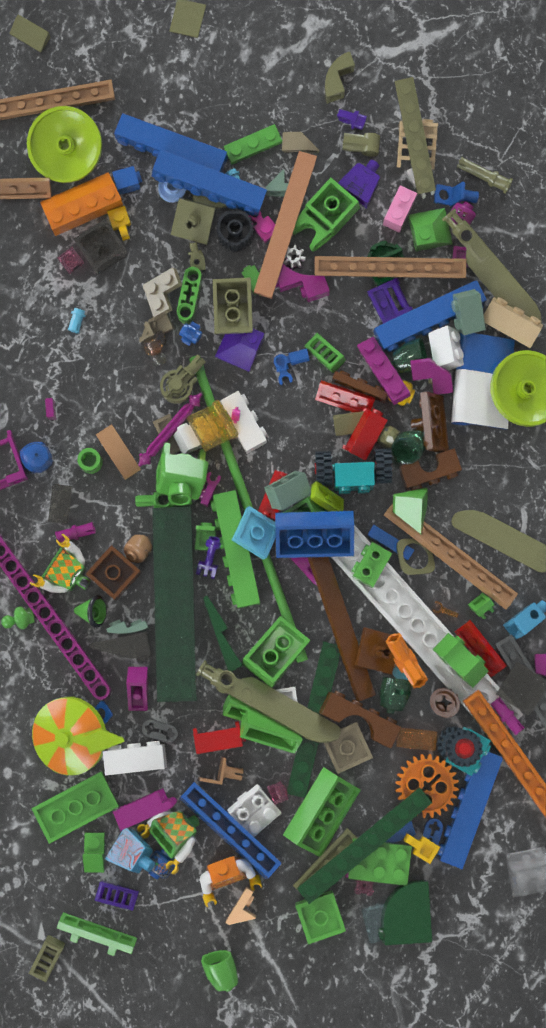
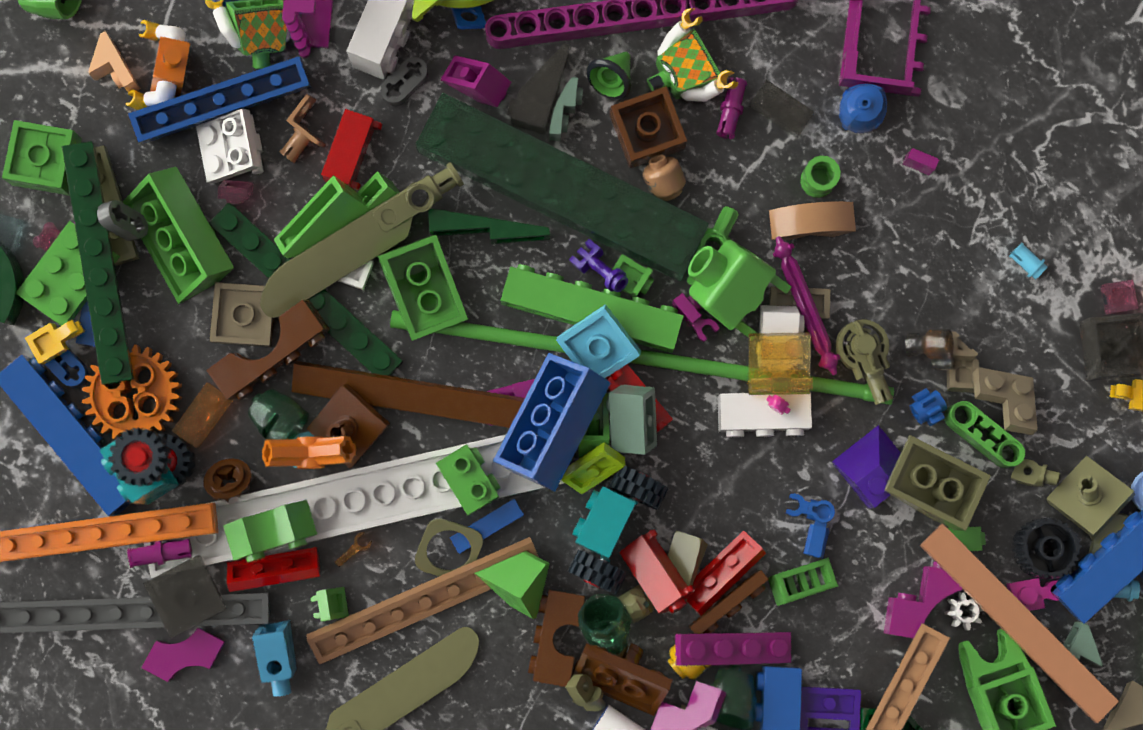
camera: 110 degrees right, 0 degrees up
(332, 845) = (123, 214): none -> dark grey beam
(452, 438) = (584, 693): none -> olive piece

